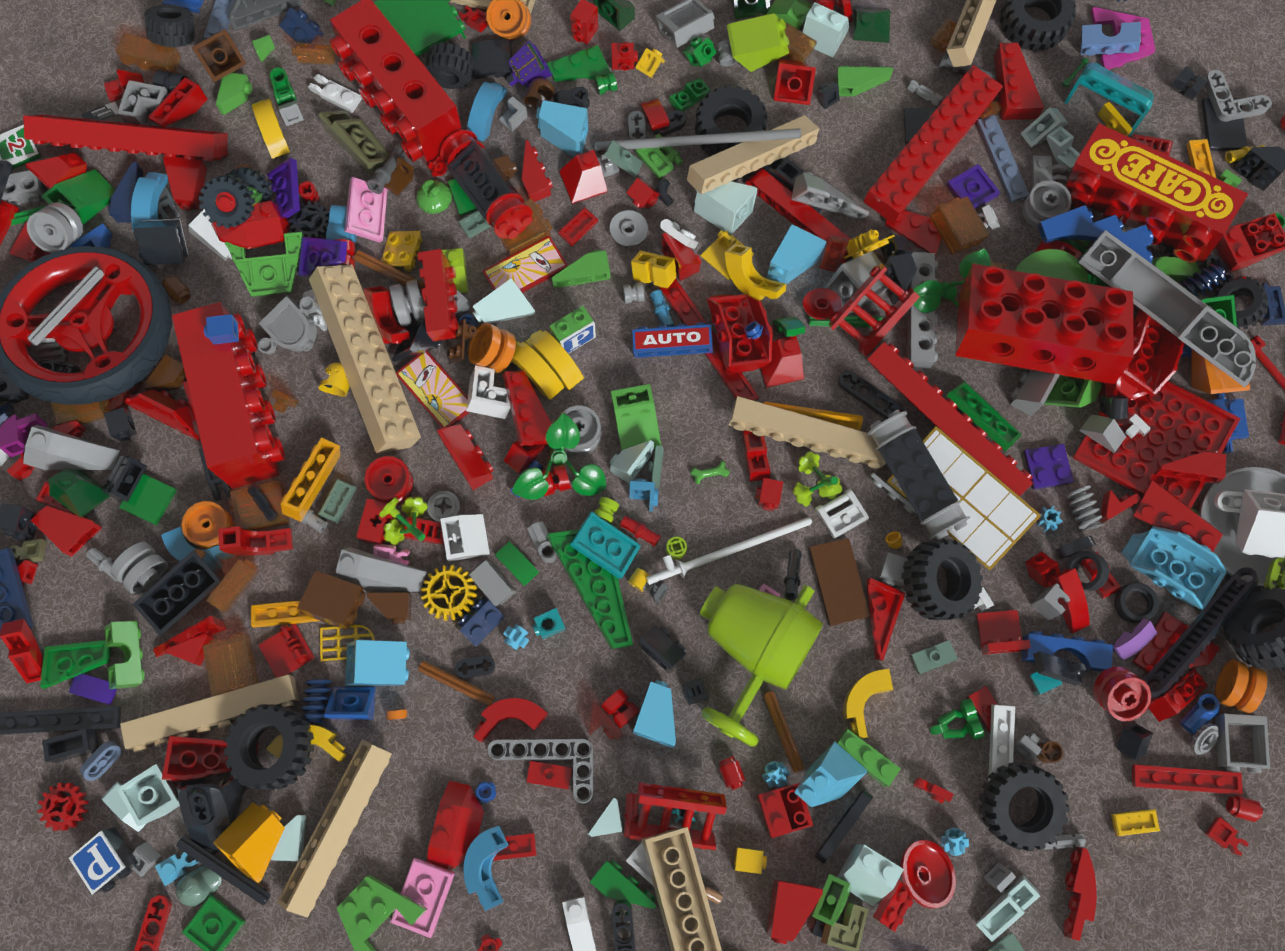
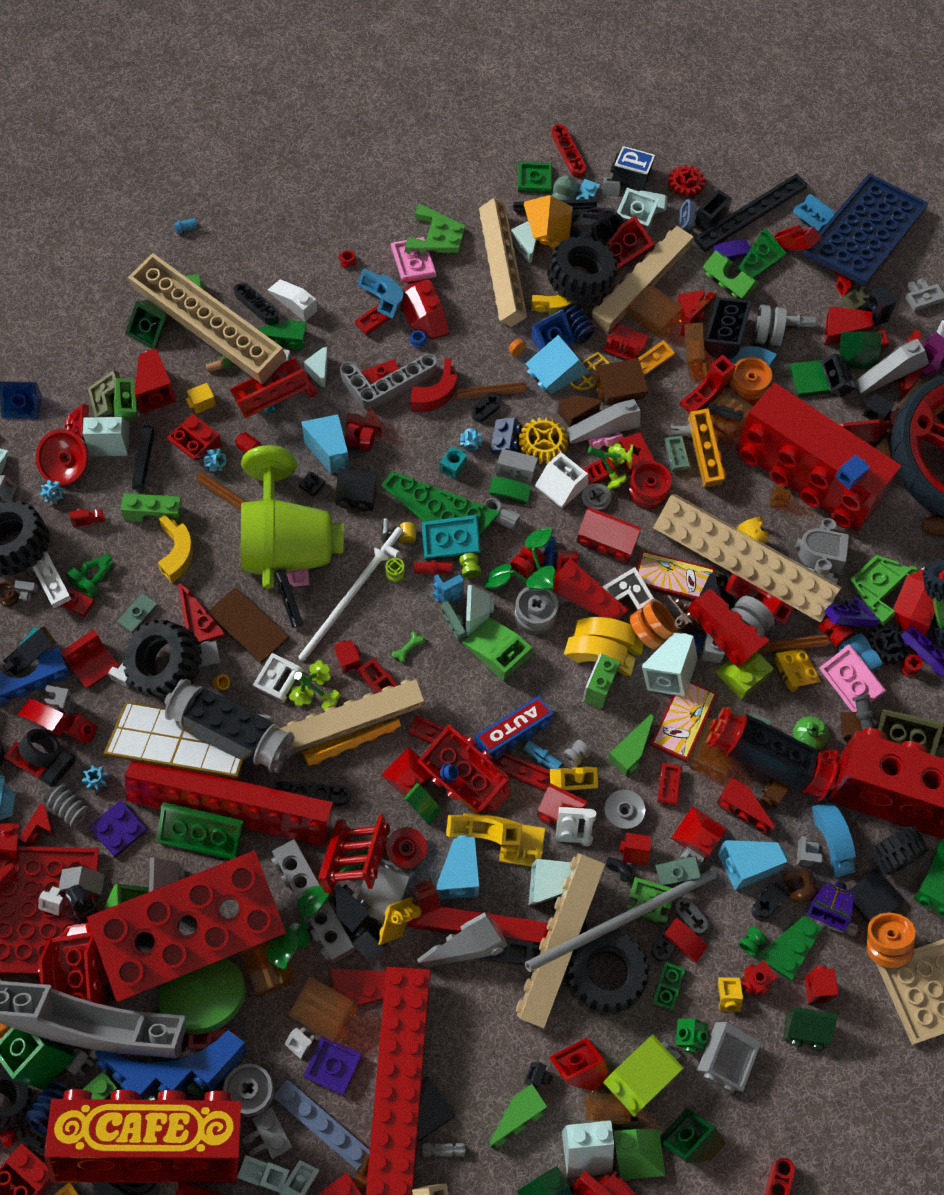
camera: 145 degrees right, 10 degrees down
(475, 20) = (924, 929): red plate -> none
(830, 777) = (174, 472): medium azure slope -> none

